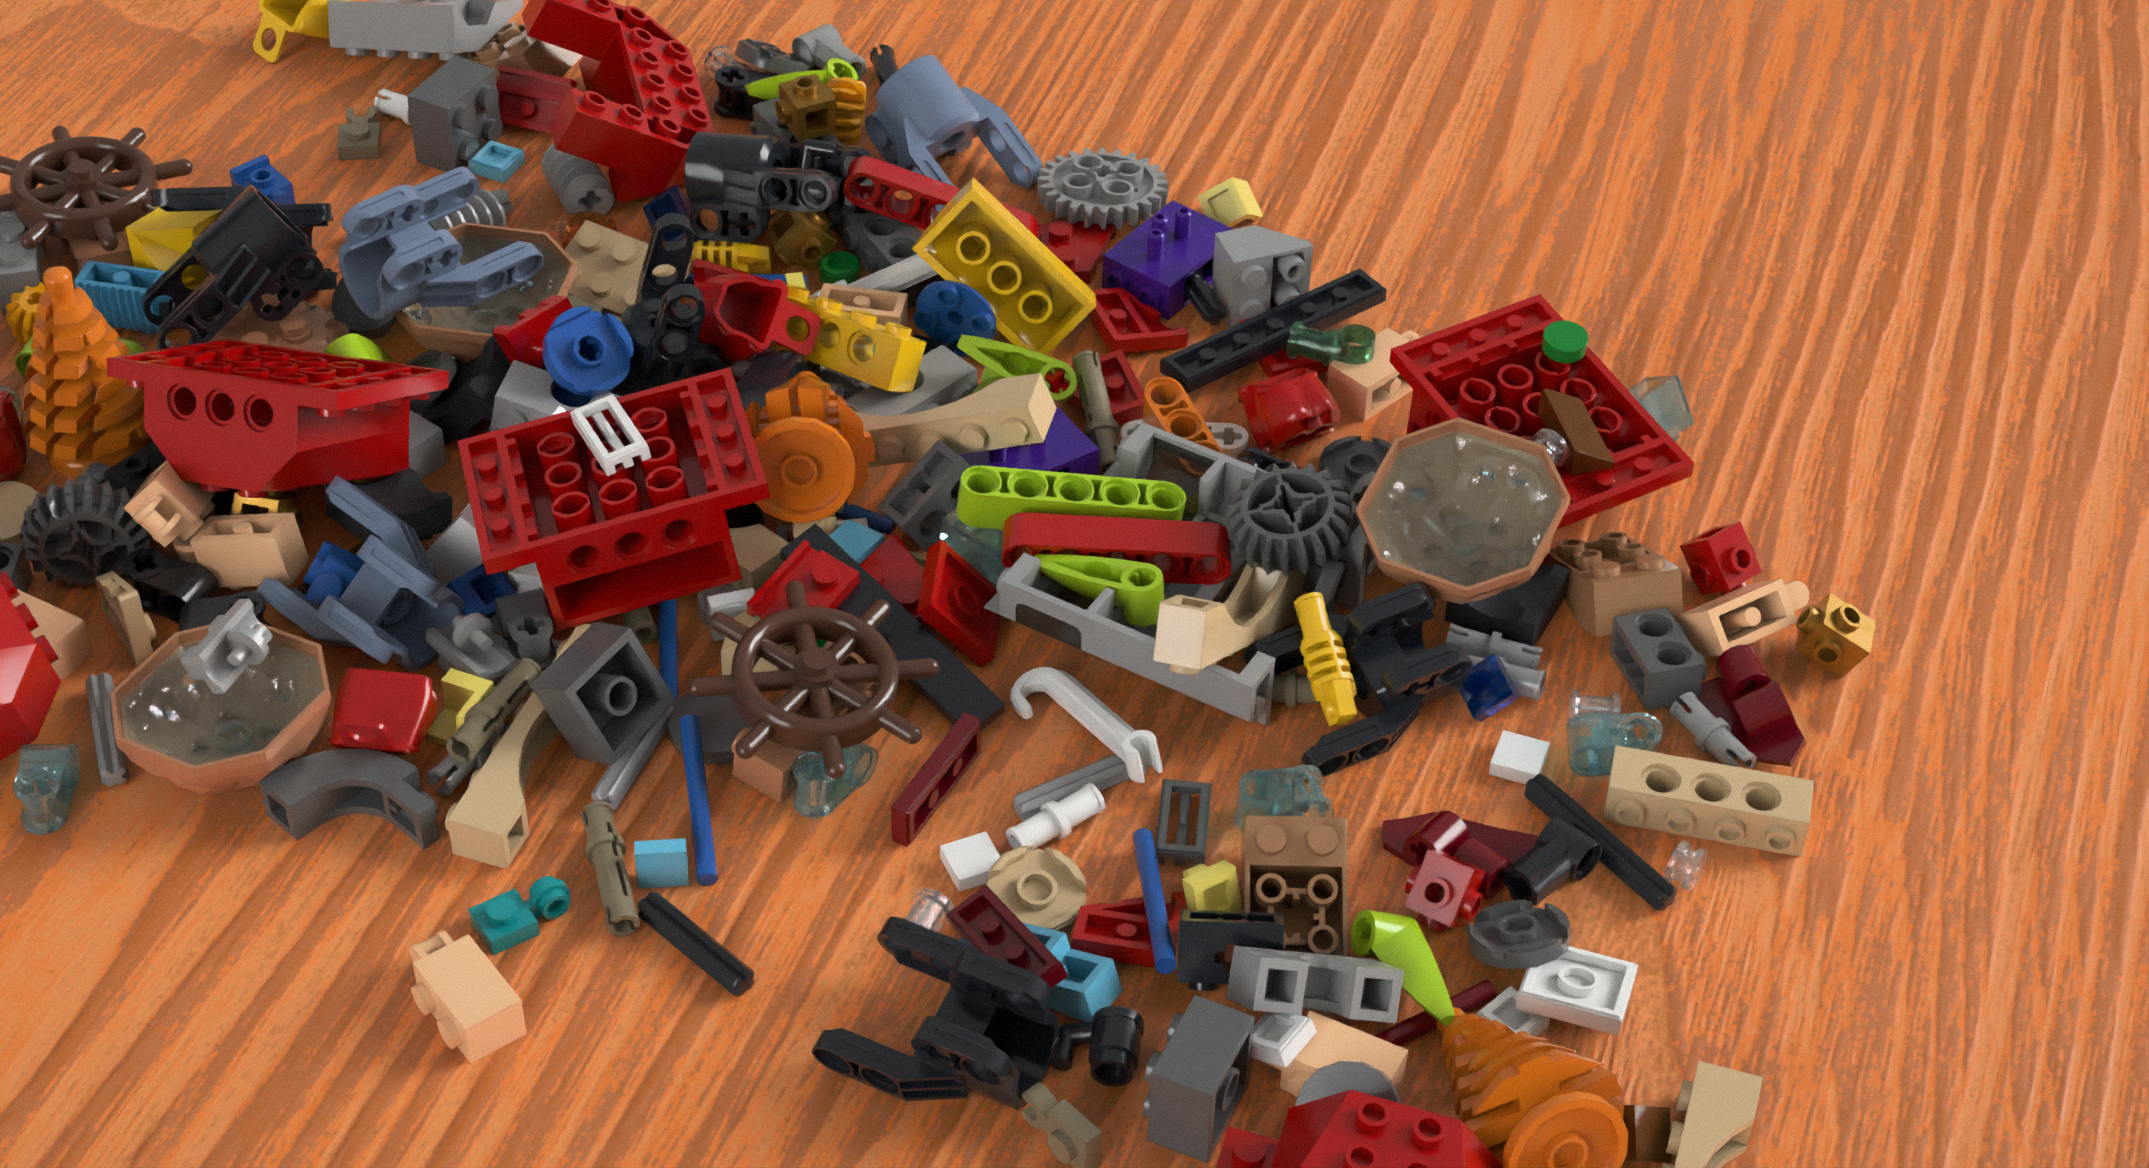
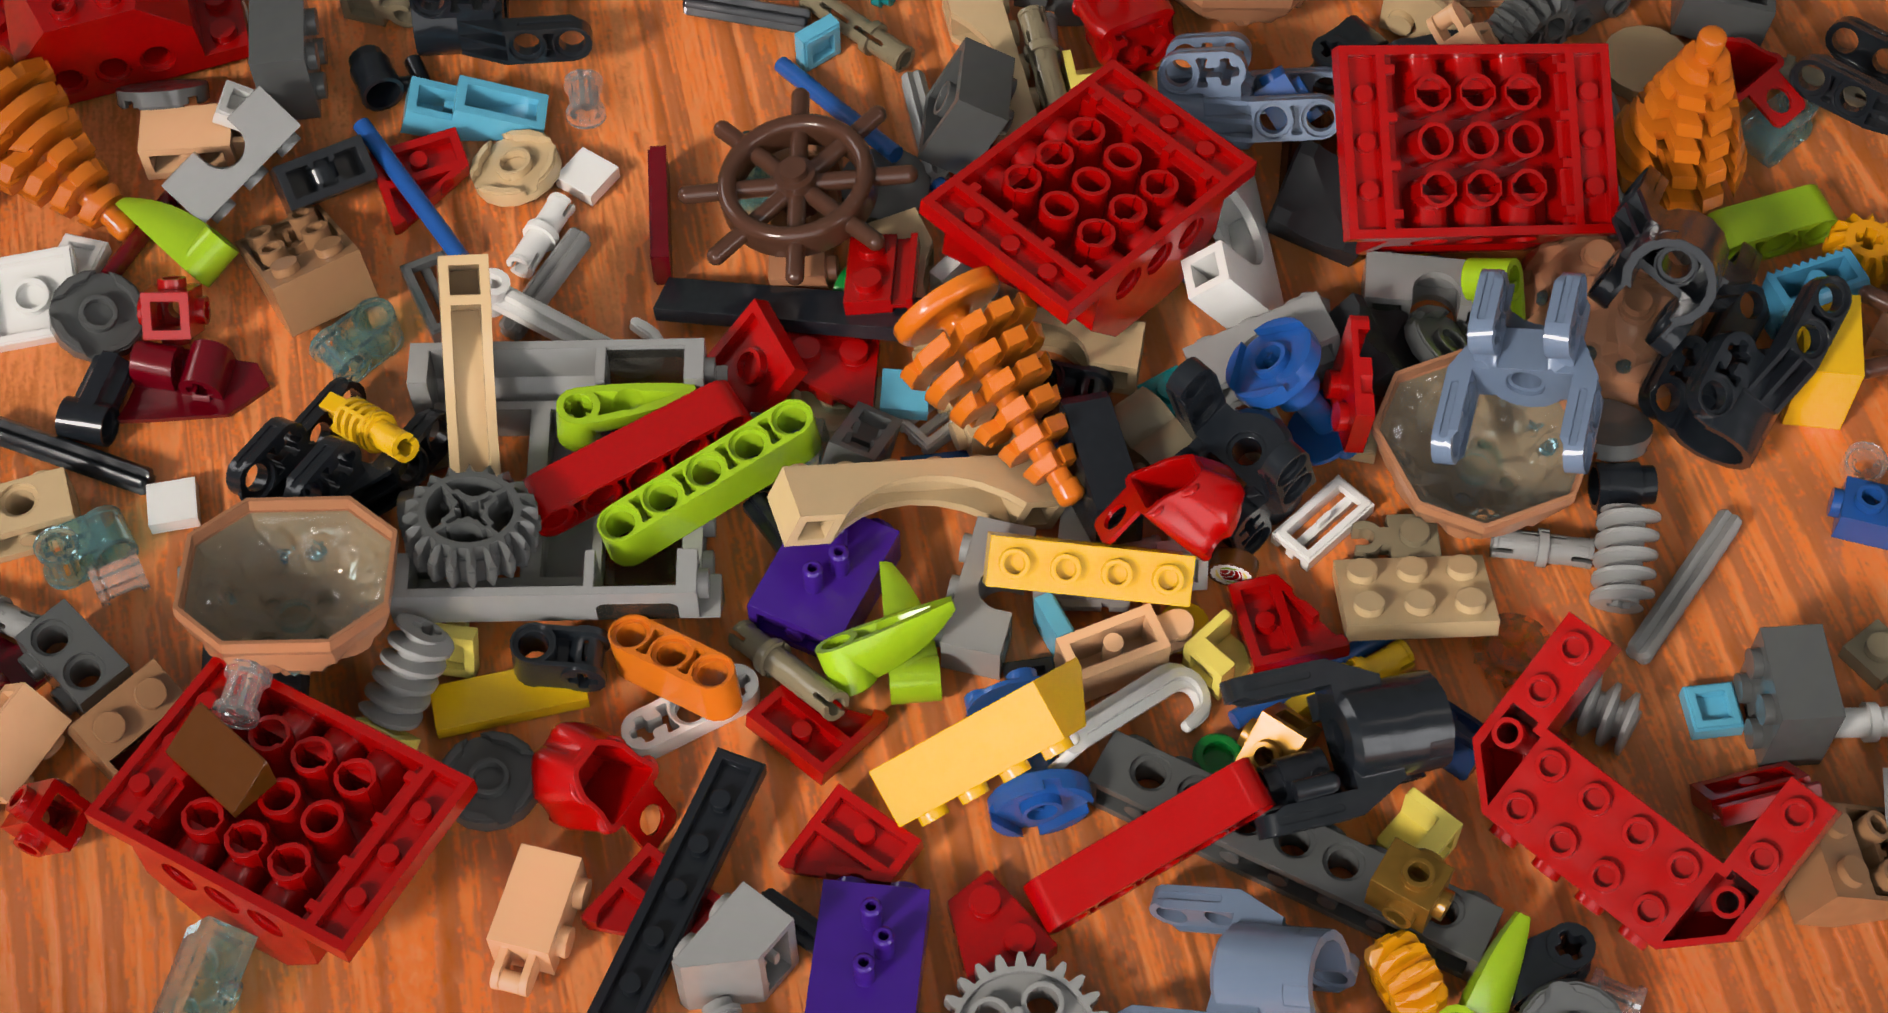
camera: 150 degrees right, 15 degrees up
(620, 453) = (1107, 200): white tile -> none
(999, 933) = (495, 81): dark red tile -> none
(1212, 887) = (375, 229): light yellow tile -> none
(1333, 344) = (592, 877): clear green connector -> none
(1564, 341) = (281, 881): green tile -> none

